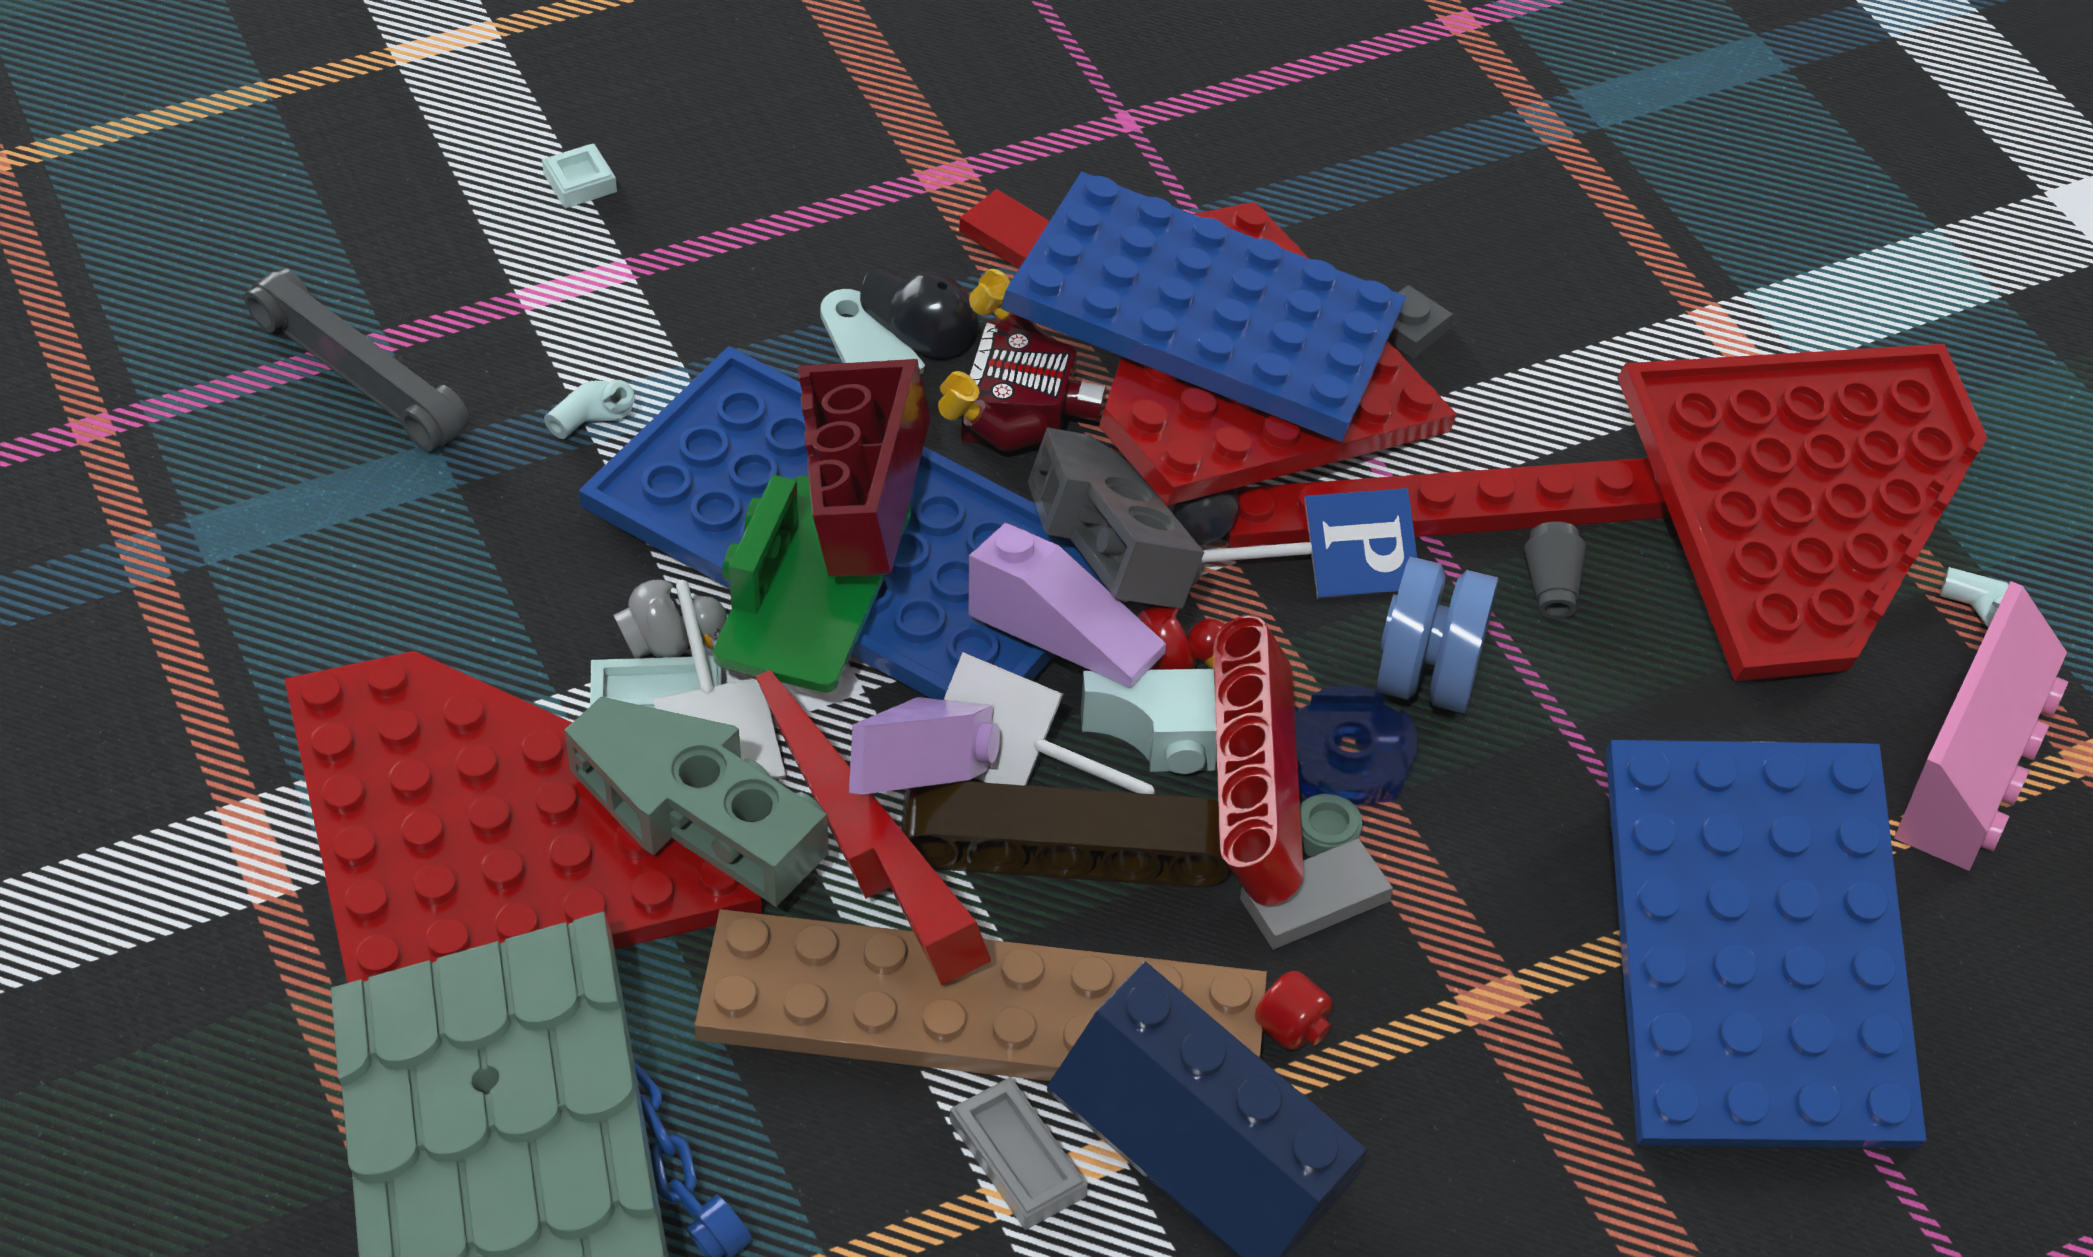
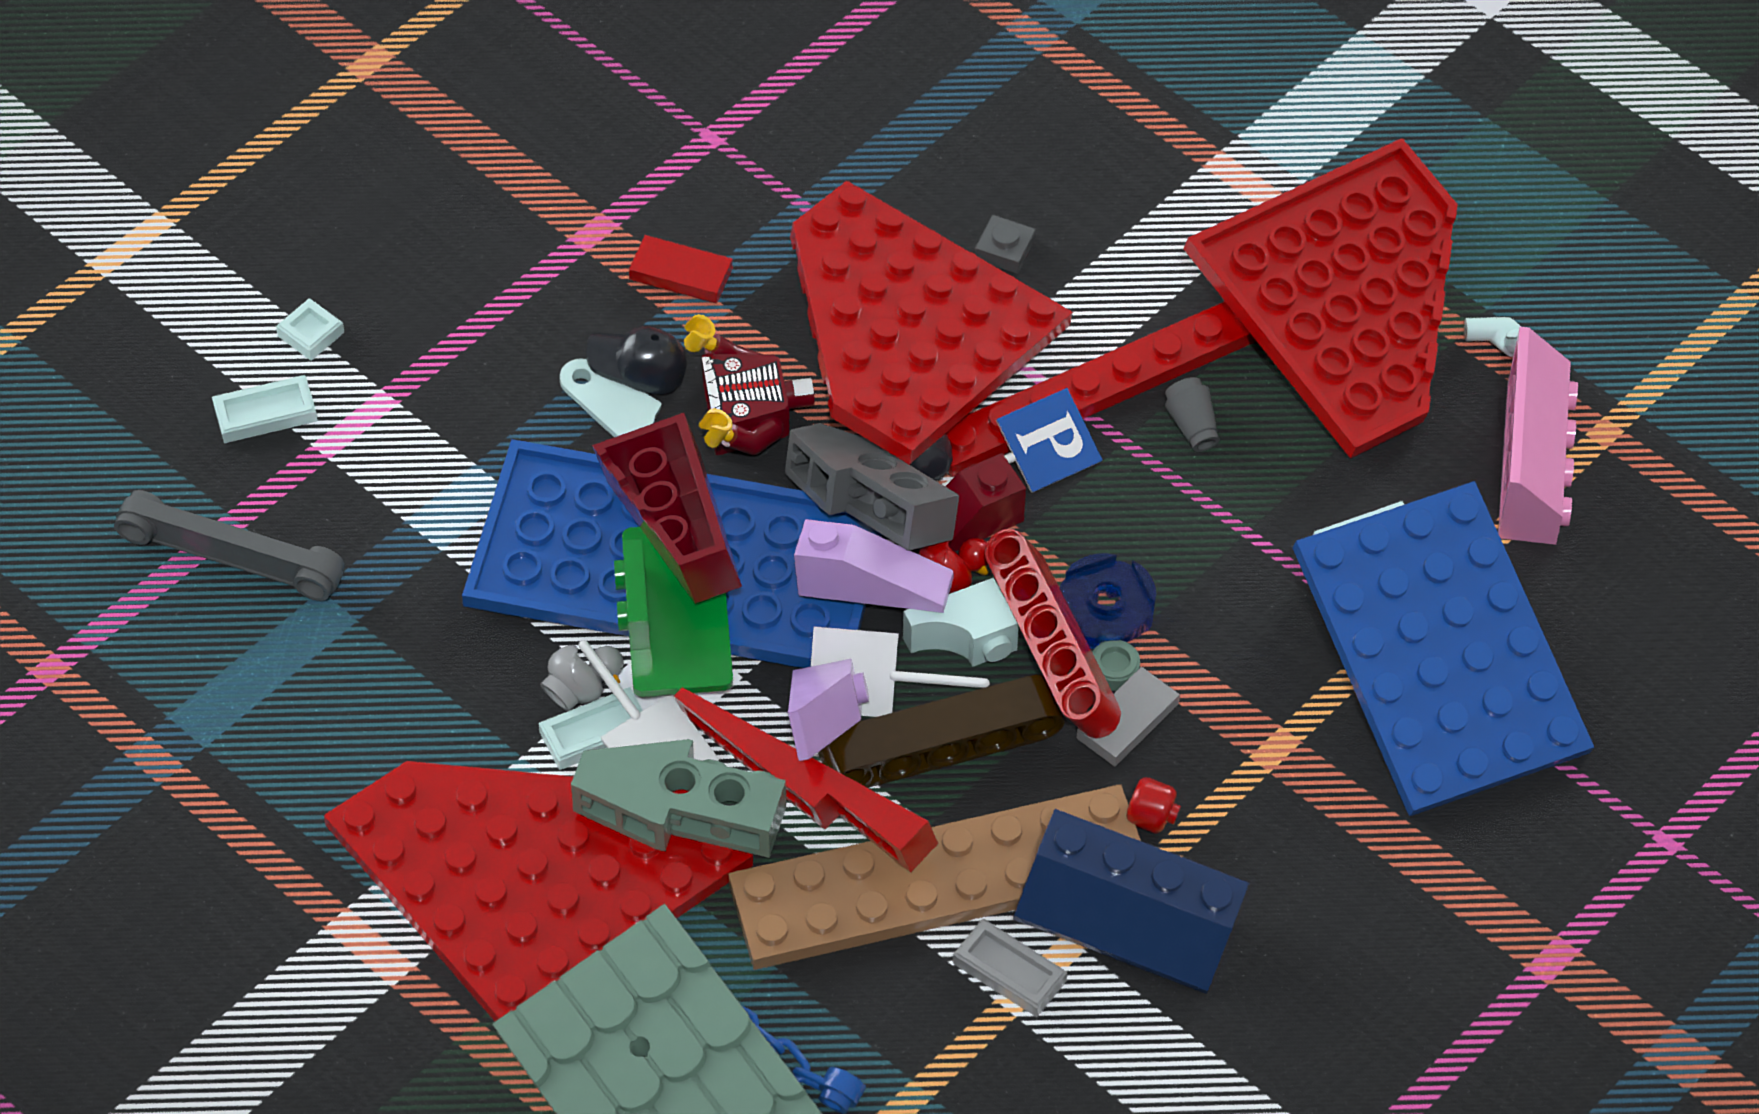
camera: 20 degrees left, 5 degrees up
(483, 238) = (264, 409): none -> light aqua tile
(590, 403) = (427, 519): light aqua arm -> none
(1206, 304) = (864, 290): blue plate -> none
(1246, 577) = (988, 500): none -> dark red slope
(1428, 633) = (1138, 496): medium blue wheel -> none

